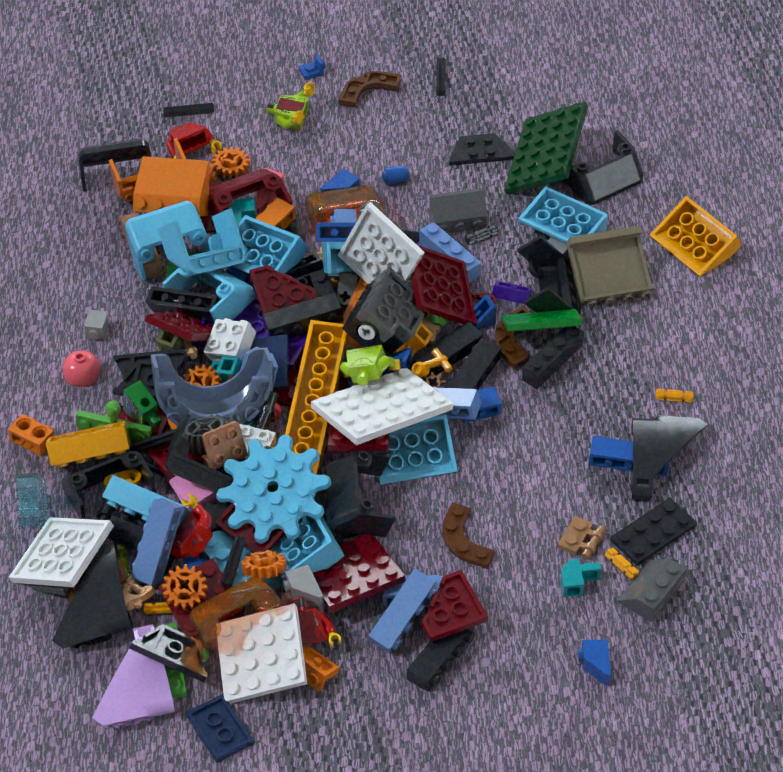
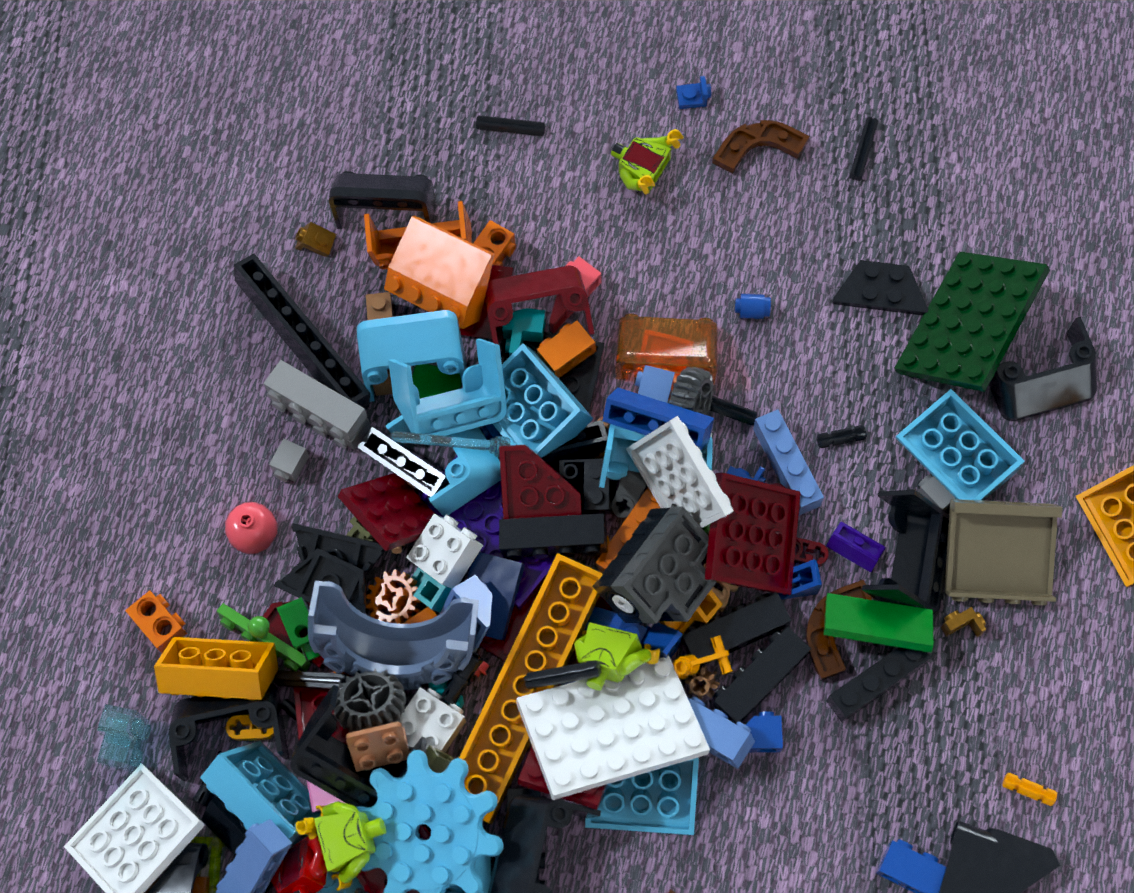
camera: 20 degrees right, 20 degrees up
(70, 198) = (315, 239): none -> pearl gold bracket
(81, 251) = (298, 330): none -> black brick
(107, 285) = (316, 405): none -> light grey piece
(191, 138) = (493, 179): red torso -> none
(221, 503) = (346, 840): none -> lime torso
(231, 162) = (527, 228): orange gear -> none
(243, 276) = (447, 441): none -> clear light blue piece
(338, 380) = (562, 674): none -> black axle
(341, 180) = (675, 304): blue slope -> none
(459, 210) = (818, 398): dark grey slope -> none
(597, 313) = (958, 620): none -> pearl gold bracket

